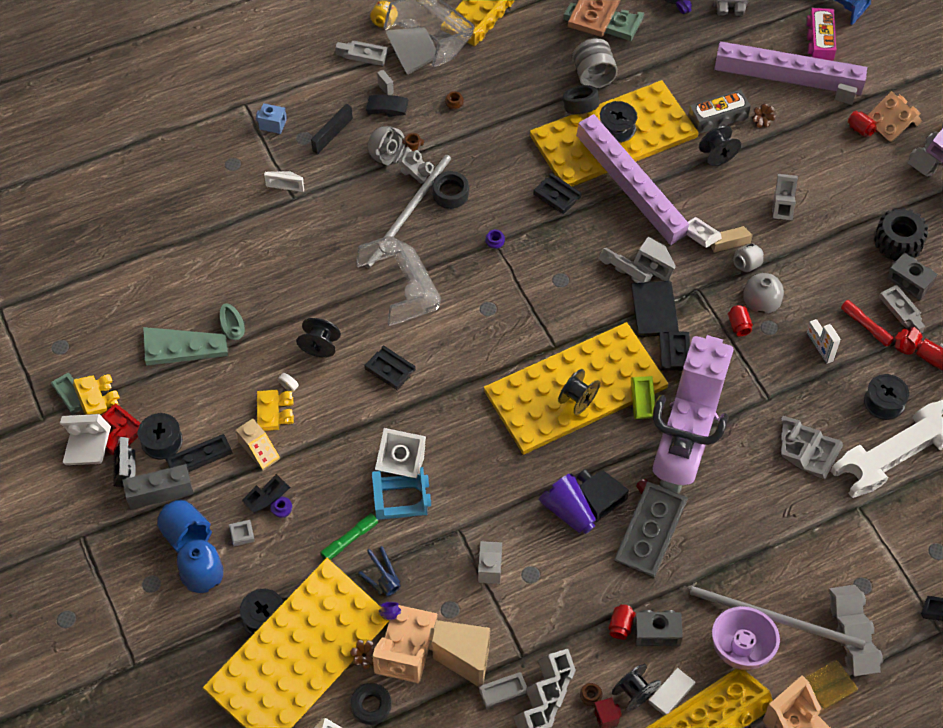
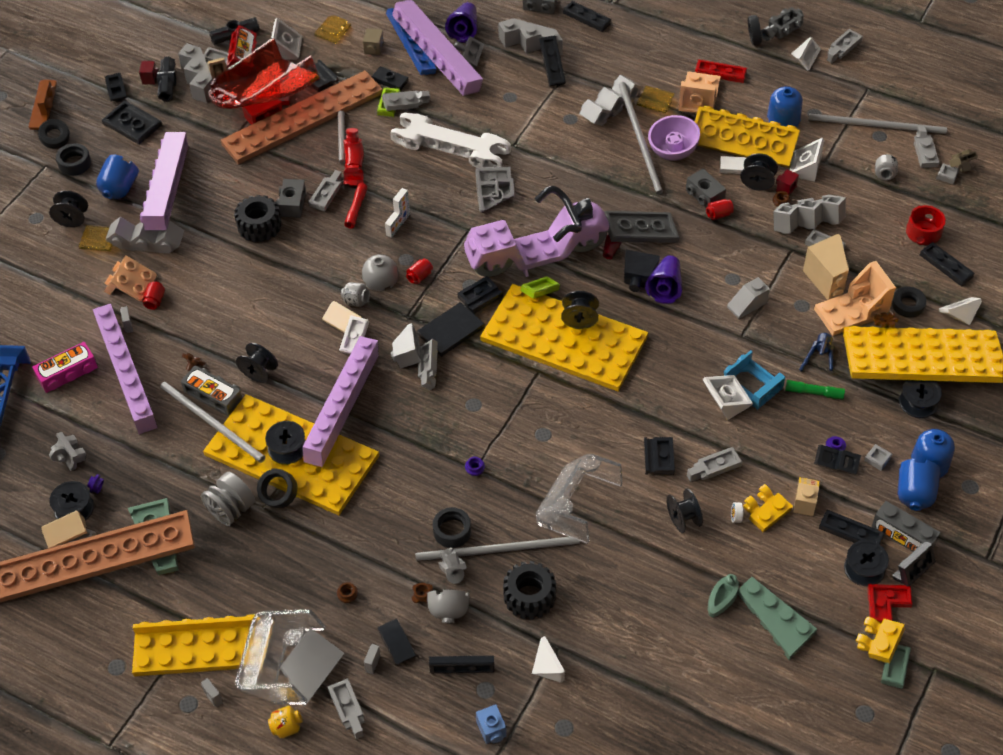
camera: 125 degrees left, 5 degrees down
(86, 439) = (925, 608): white bracket -> none
(344, 401) = (714, 465): none -> light grey hinge
(349, 187) = (529, 575): none -> black tyre
(389, 610) = (840, 321): dark purple plate -> none
(557, 193) = (392, 451): black plate -> none
(681, 93) = (213, 422): none -> light grey piece
(784, 197) = (279, 302): light grey brick -> none
(886, 396) = (414, 165): black piece -> none

